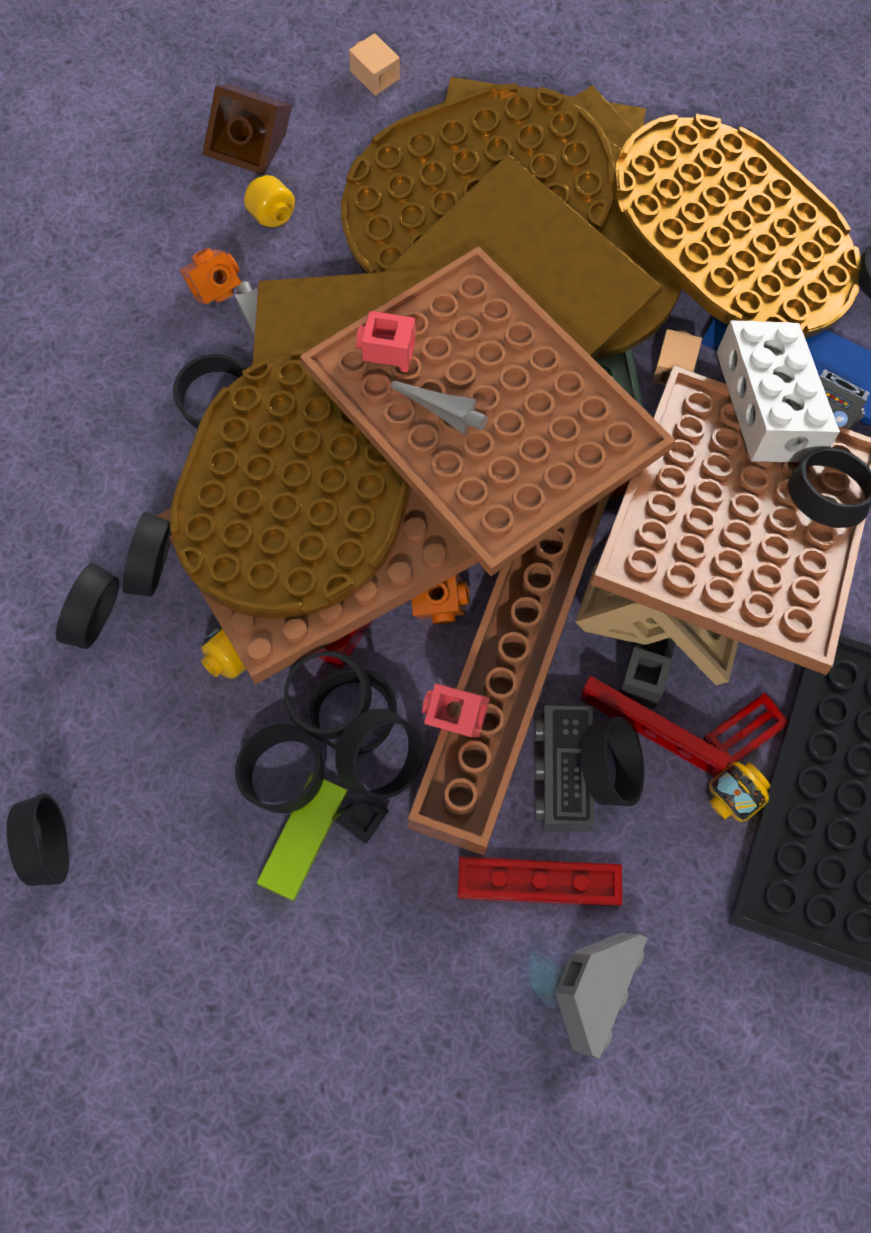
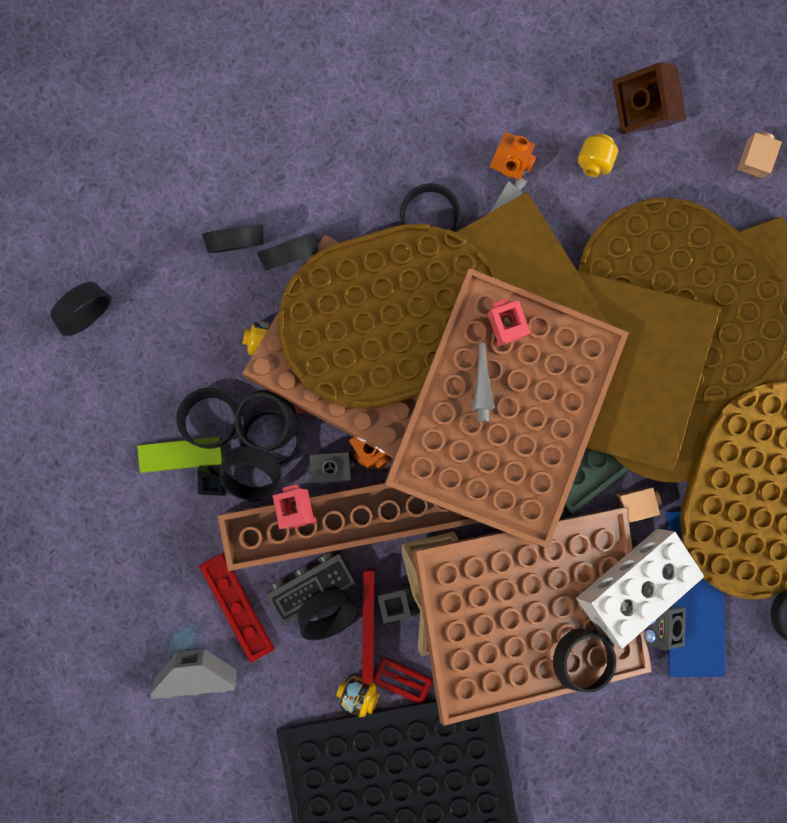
camera: 65 degrees right, 20 degrees up
(425, 671) = (342, 469): none -> dark grey head

